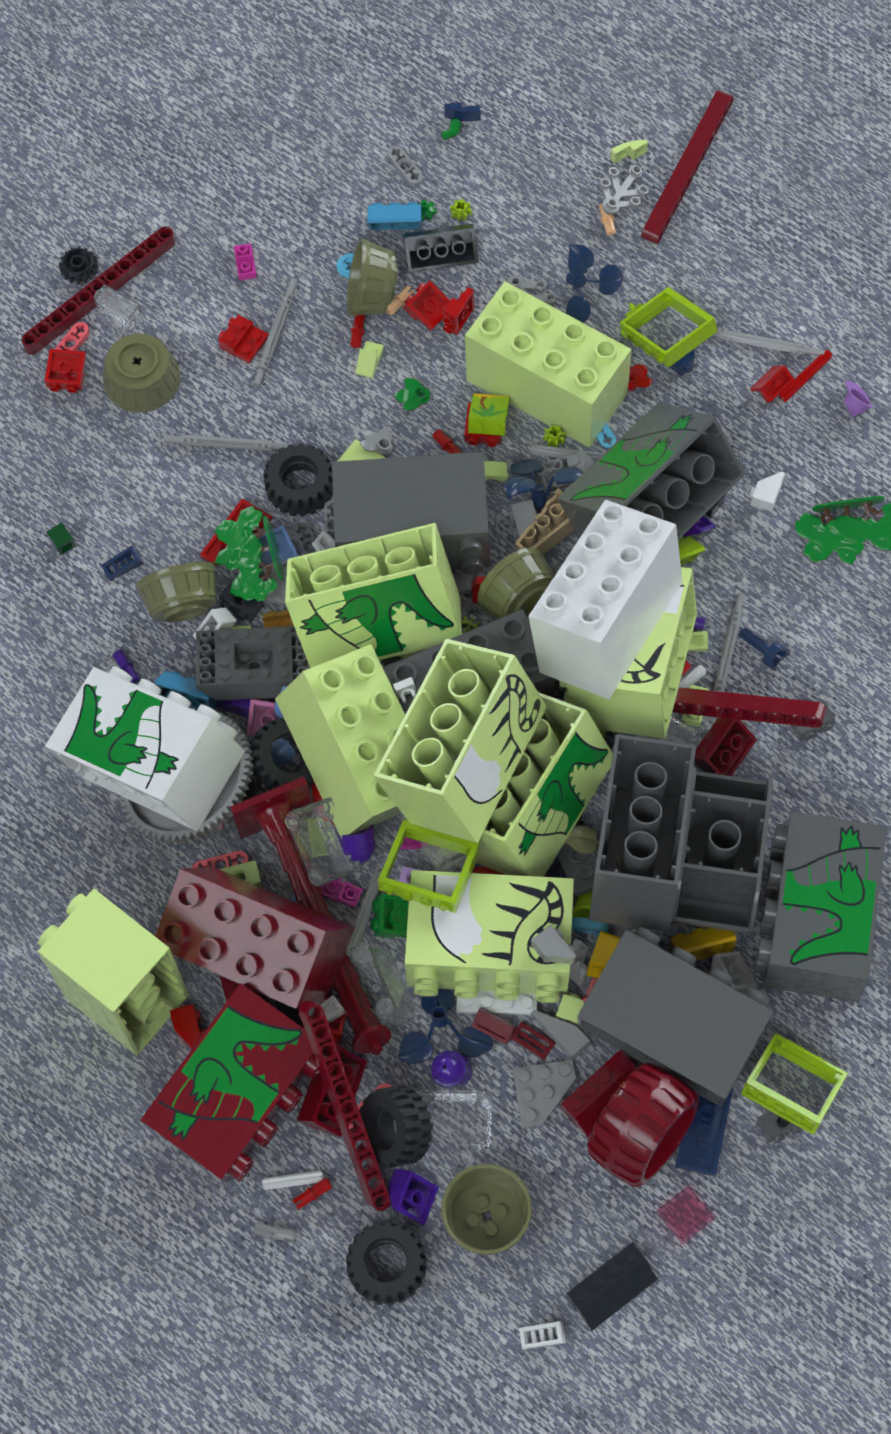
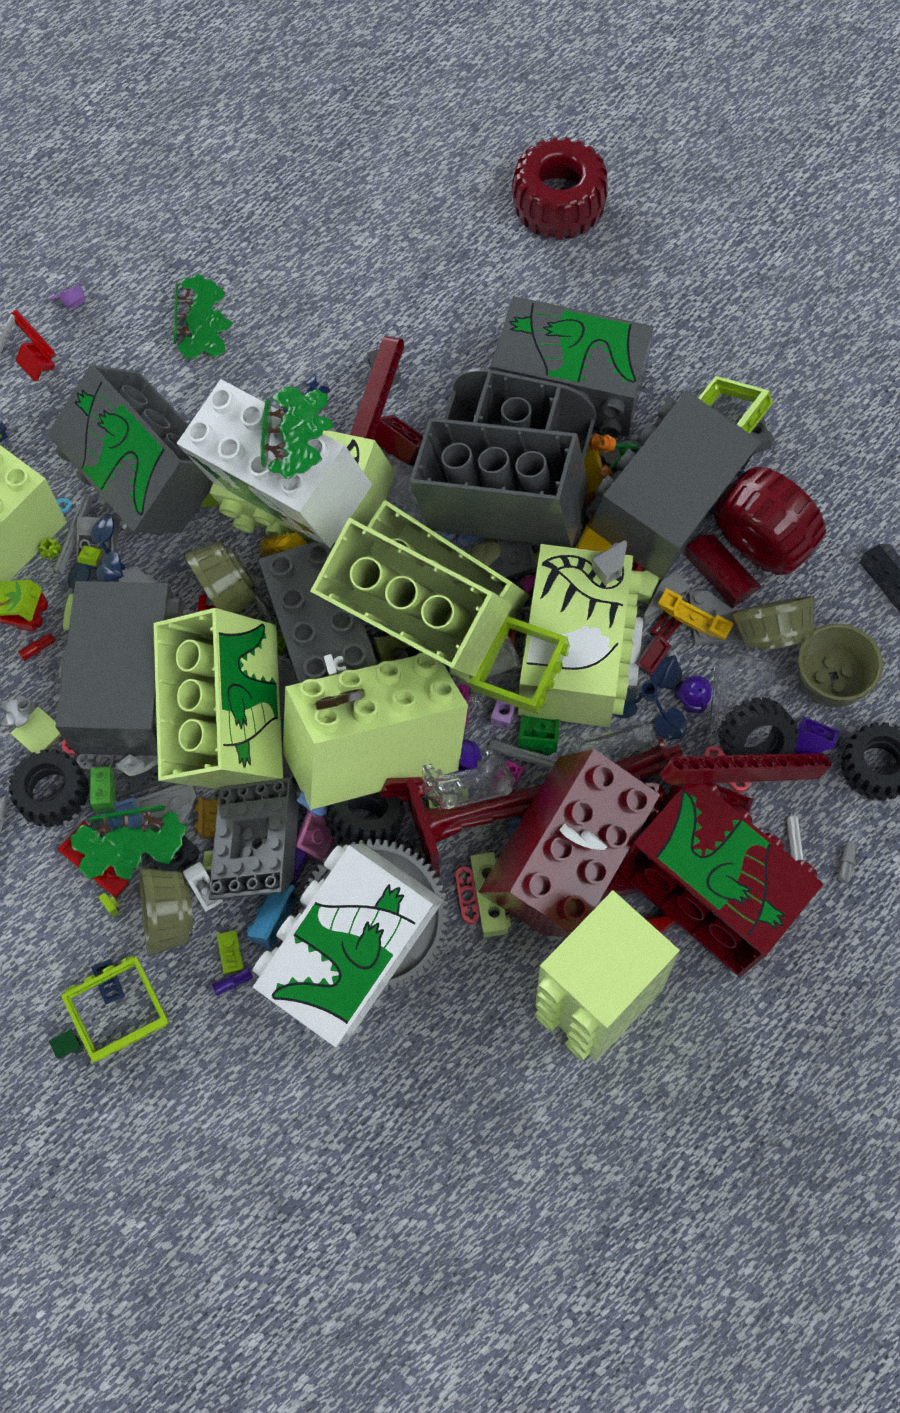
camera: 85 degrees left, 0 degrees up
(73, 549) = (93, 981): none -> lime window
(154, 662) = (230, 952): none -> lime plate
(191, 552) = (110, 904): none -> lime plate
(234, 935) = (586, 839): none -> white slope
(298, 525) = (103, 790): none -> bright green brick
(312, 1193) = (810, 827): red axle -> none
(314, 787) = (397, 786): none -> dark red tile
(361, 700) = (344, 697): none -> dark brown tile
(530, 1140) = (776, 623): none -> olive piece
(537, 1061) = (693, 616): none -> yellow slope
(543, 470) = (90, 555): none -> lime plate
(548, 527) = (147, 557): tan wedge -> none
(612, 597) = (297, 428): none -> green plant
(685, 1215) = (837, 516): clear pink tile -> none
(724, 939) = (608, 444): none -> orange plant
(767, 491) = (155, 375): white slope -> none

